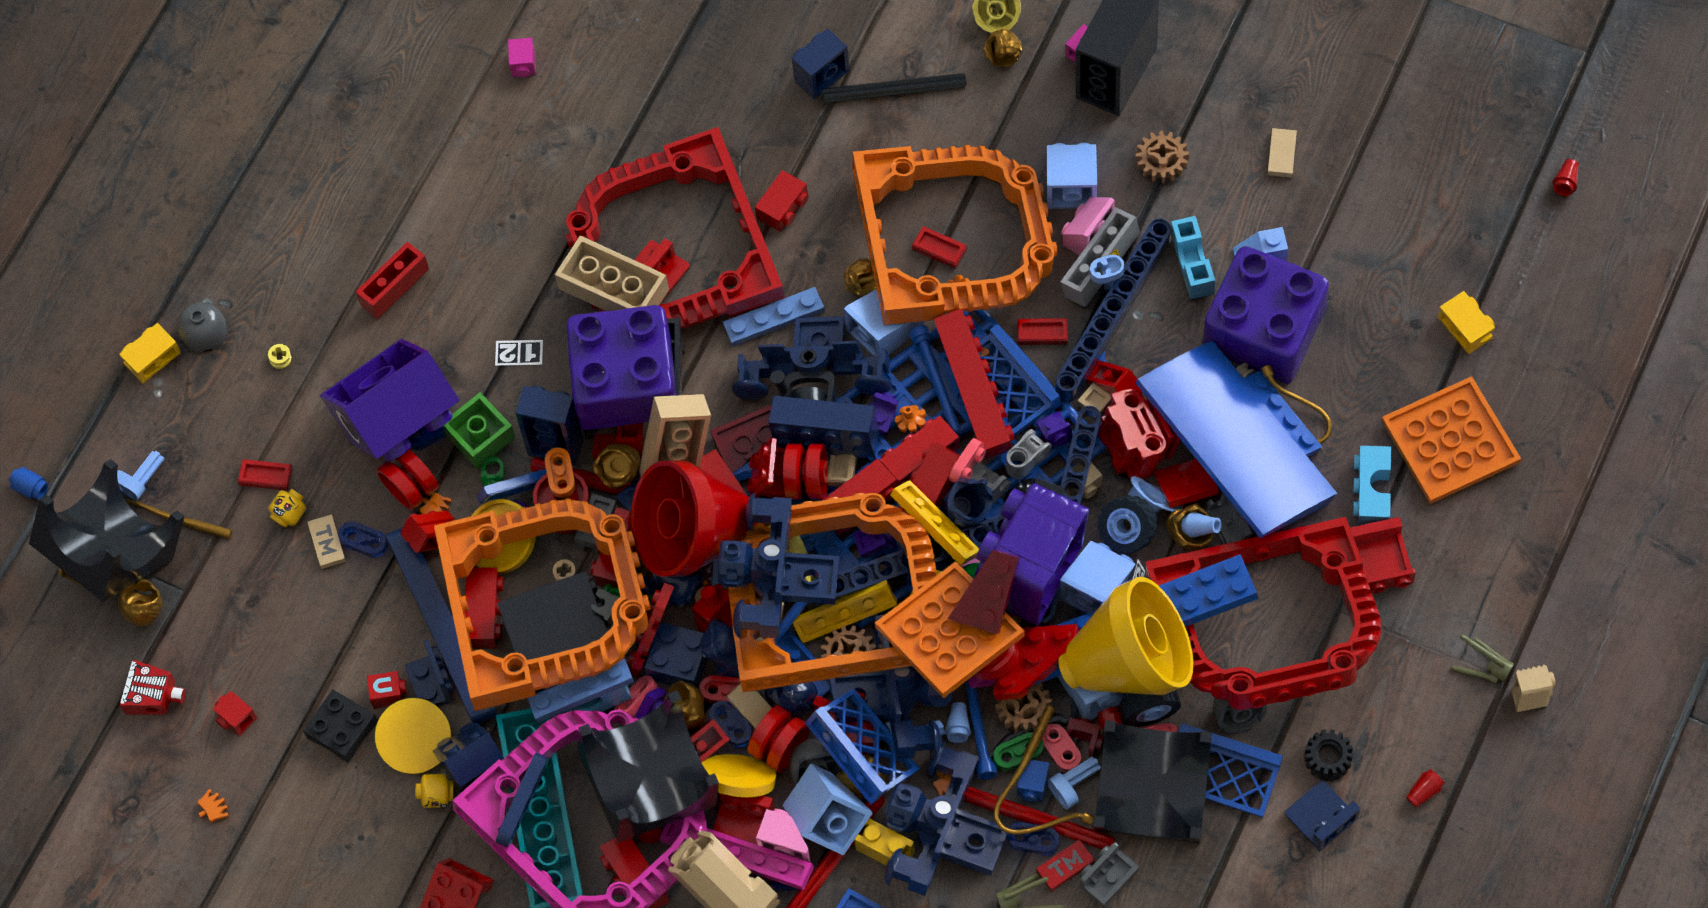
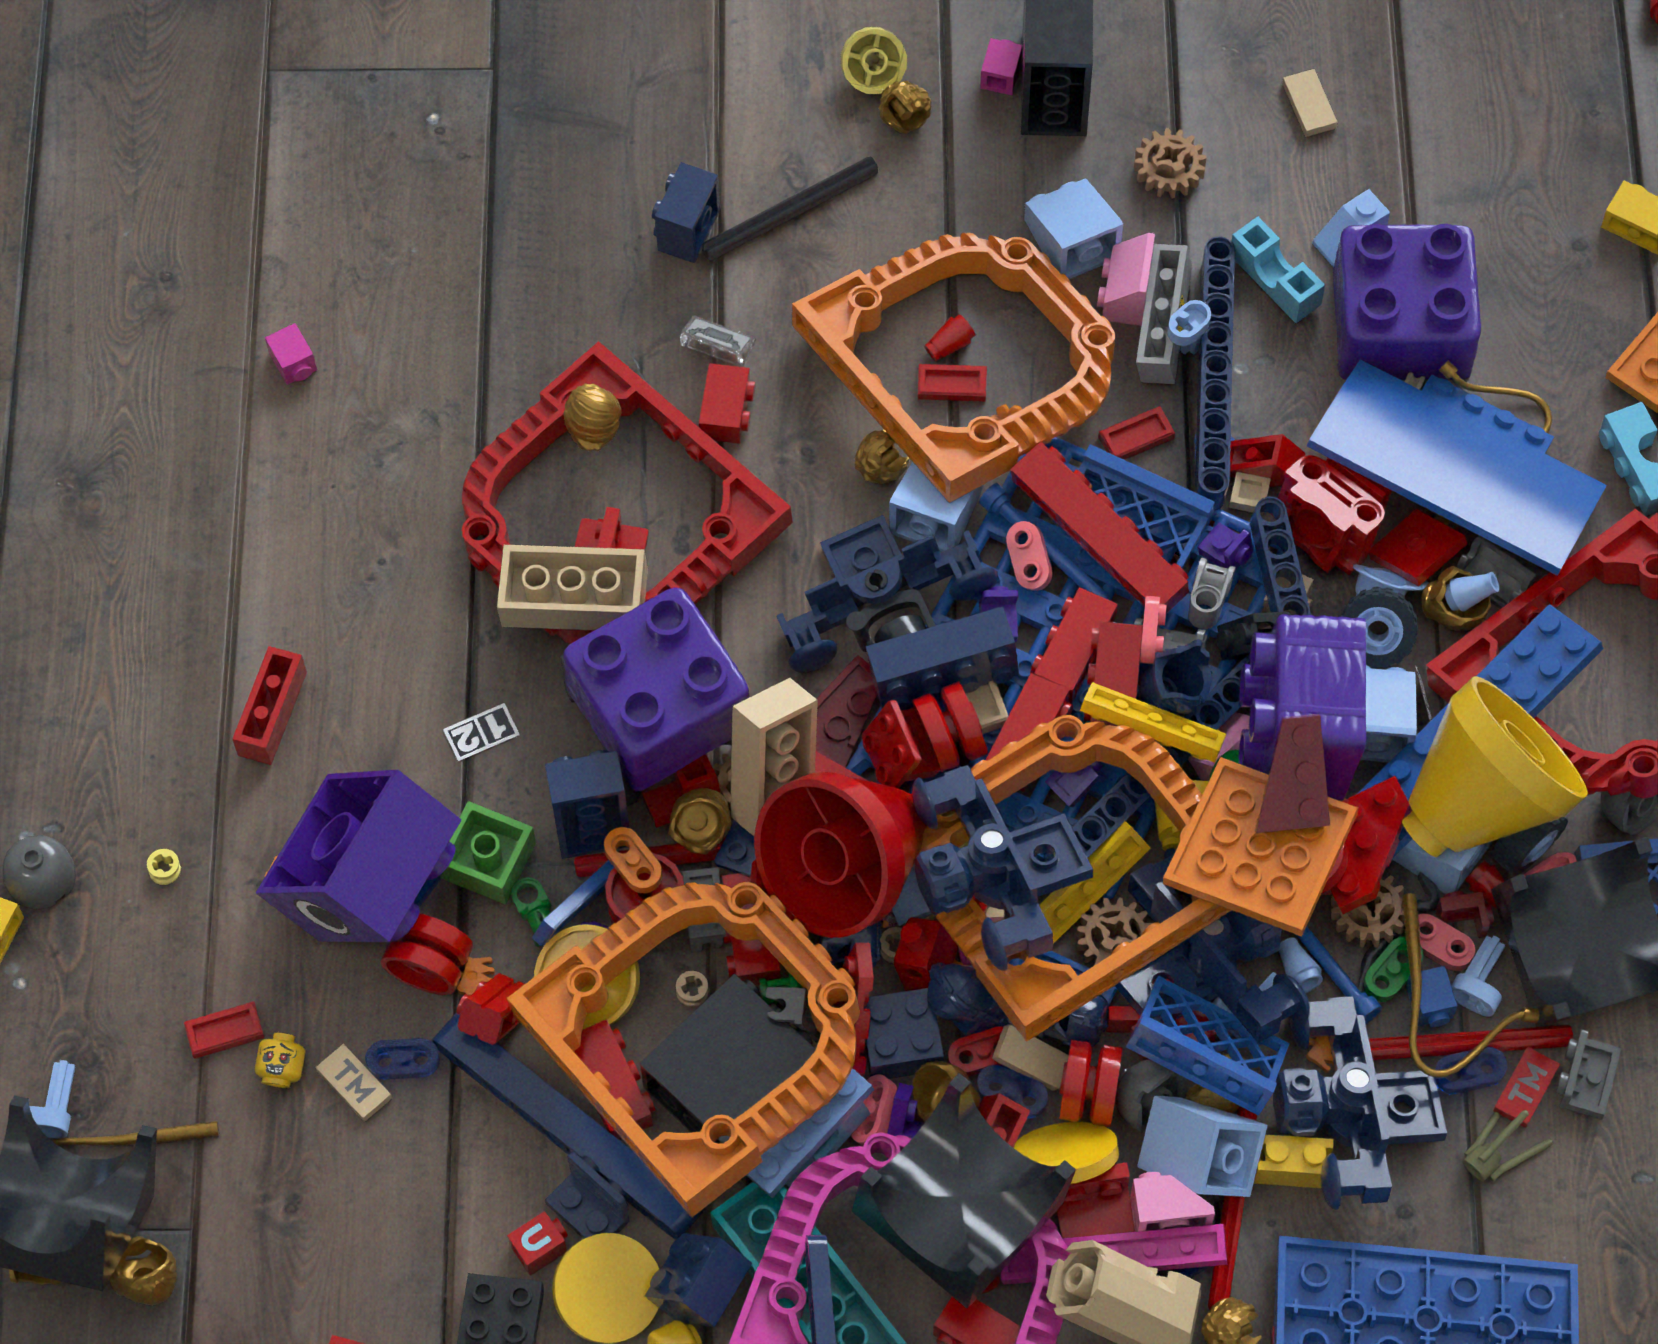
camera: 30 degrees left, 0 degrees up
(682, 174) = (592, 416): none -> pearl gold hair
(773, 316) = (788, 552): medium blue plate -> none
(800, 157) = (717, 341): none -> slope
(910, 418) = (1038, 608): orange plant -> none
(921, 380) = (1029, 554): none -> coral plate
(952, 216) = (950, 337): none -> red cone

